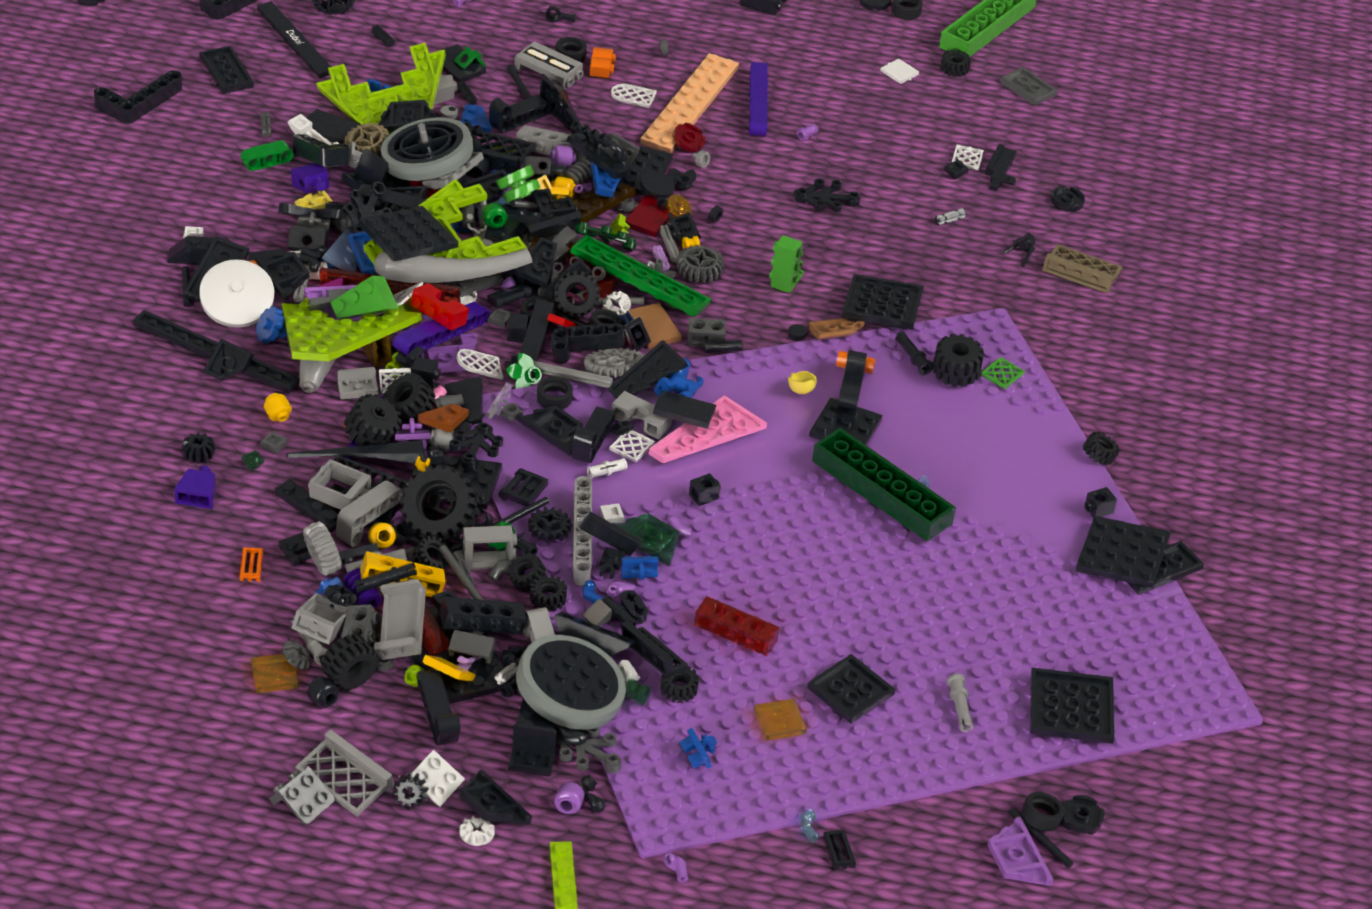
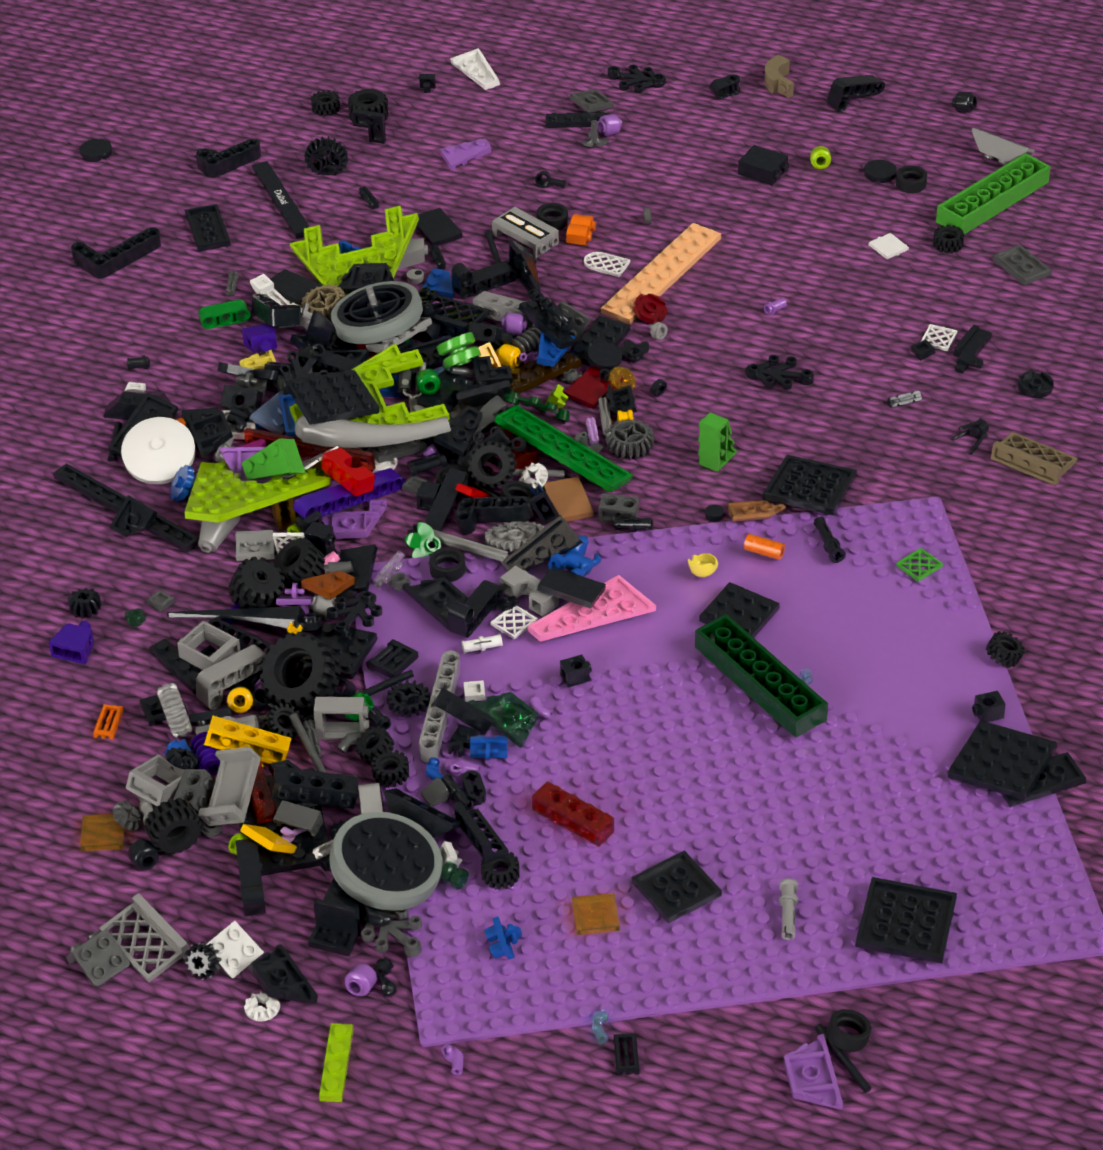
camera: 15 degrees right, 0 degrees up
(193, 206) = (141, 362): none -> black pin
(277, 407) = (171, 566): yellow head -> none
(324, 302) = (236, 463): dark grey slope -> none
(386, 577) = (234, 741): black pin -> none
(471, 56) = (448, 219): green bracket -> none
(498, 375) = (385, 523): white window -> none
(560, 192) = (501, 361): yellow plate -> none
(758, 99) = (731, 271): dark purple beam -> none
(852, 380) = (754, 566): black beam -> none
(958, 360) = (871, 549): black wheel -> none
(1082, 824) = (892, 1047): black plate -> none

